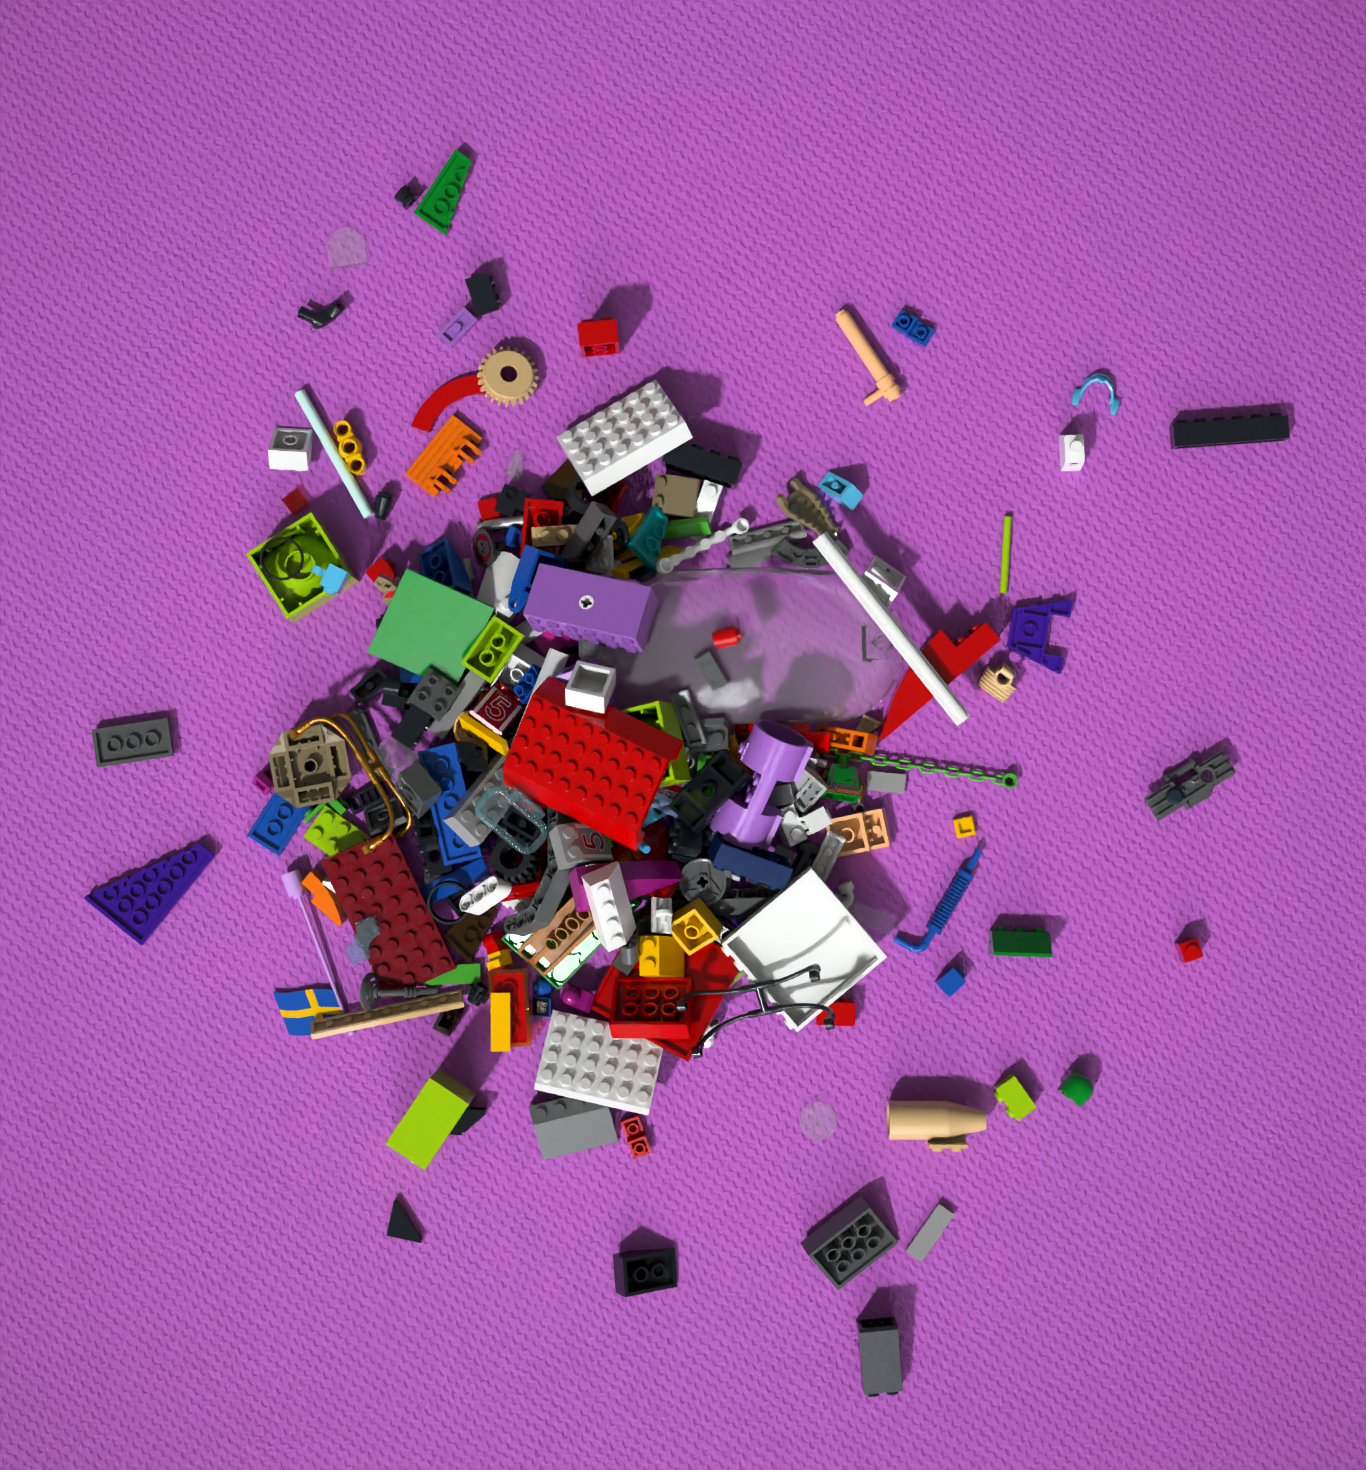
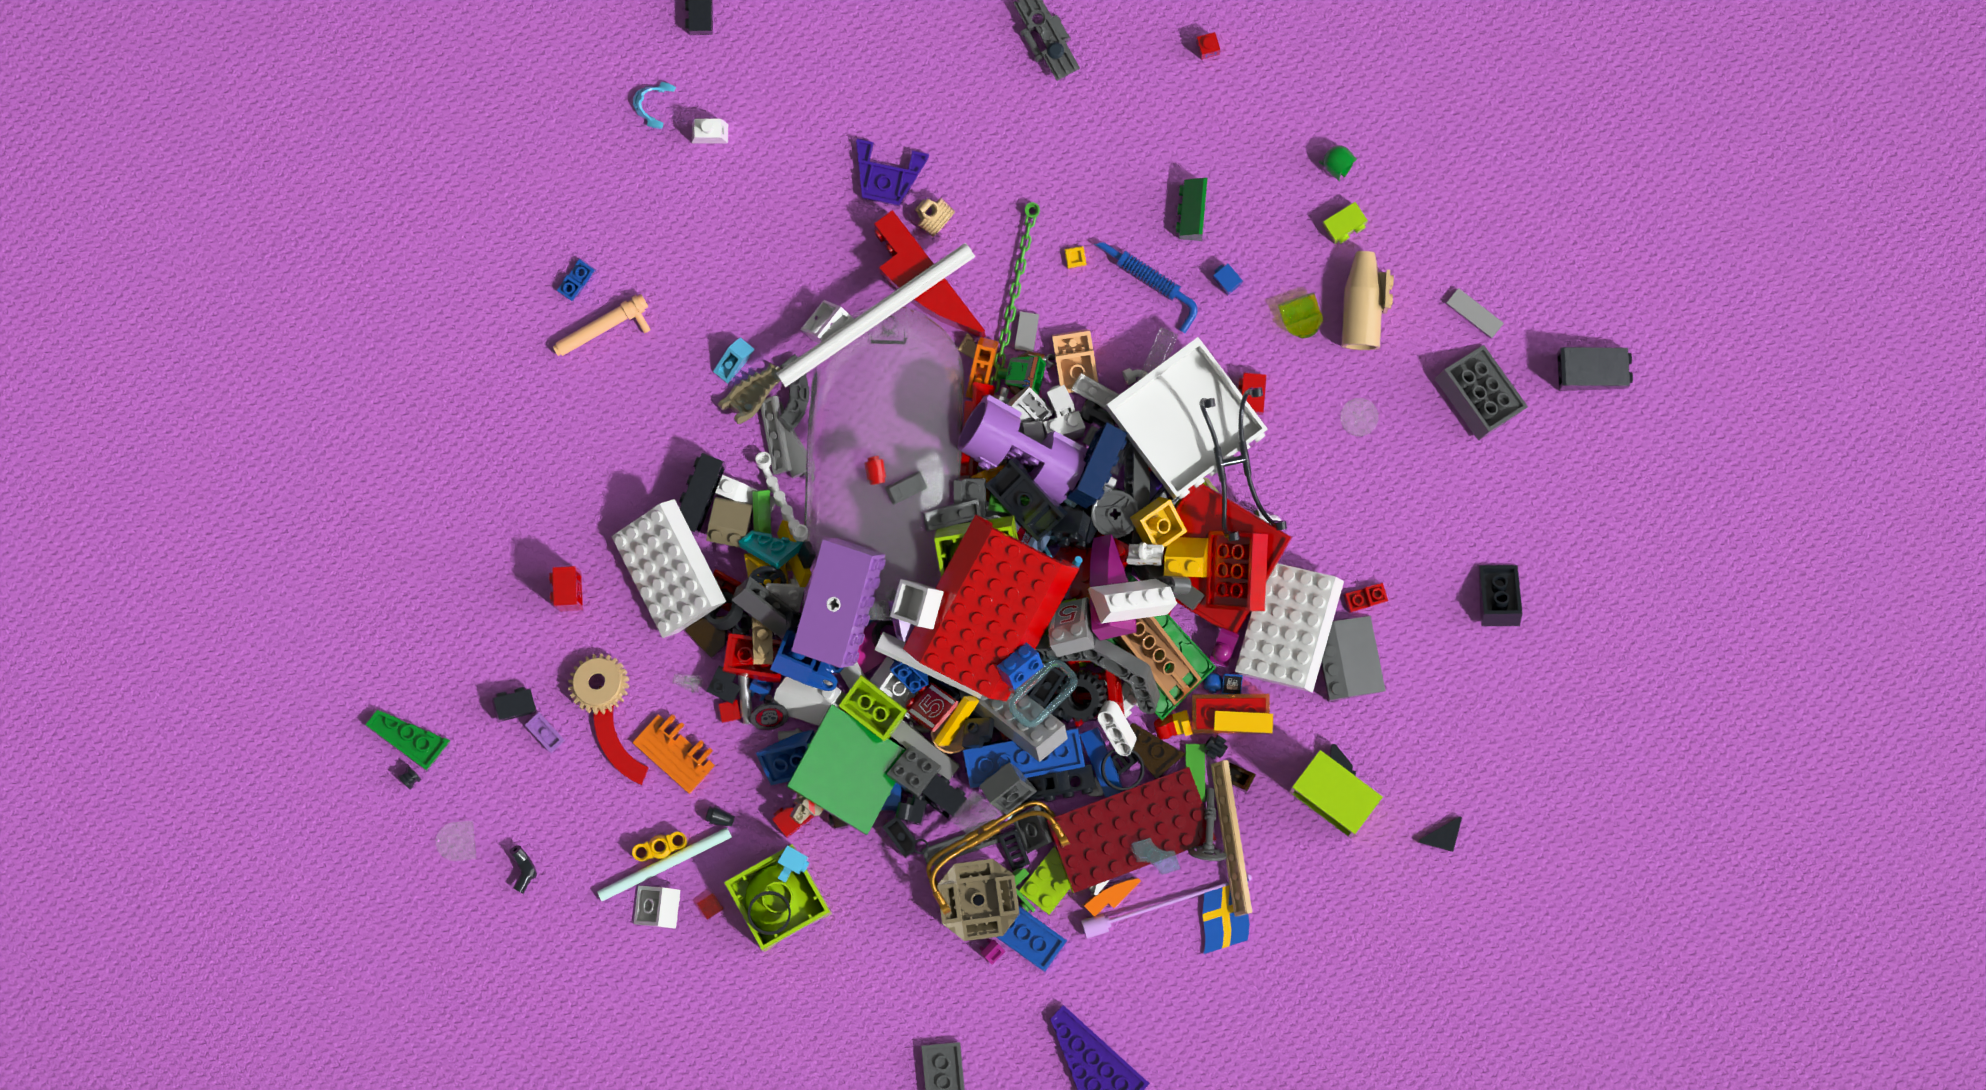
camera: 80 degrees left, 5 degrees down
(534, 796) = (1020, 666): none -> blue brick
(917, 1058) = (1301, 316): none -> clear neon green slope
(1005, 554) = (807, 201): lime bar -> none

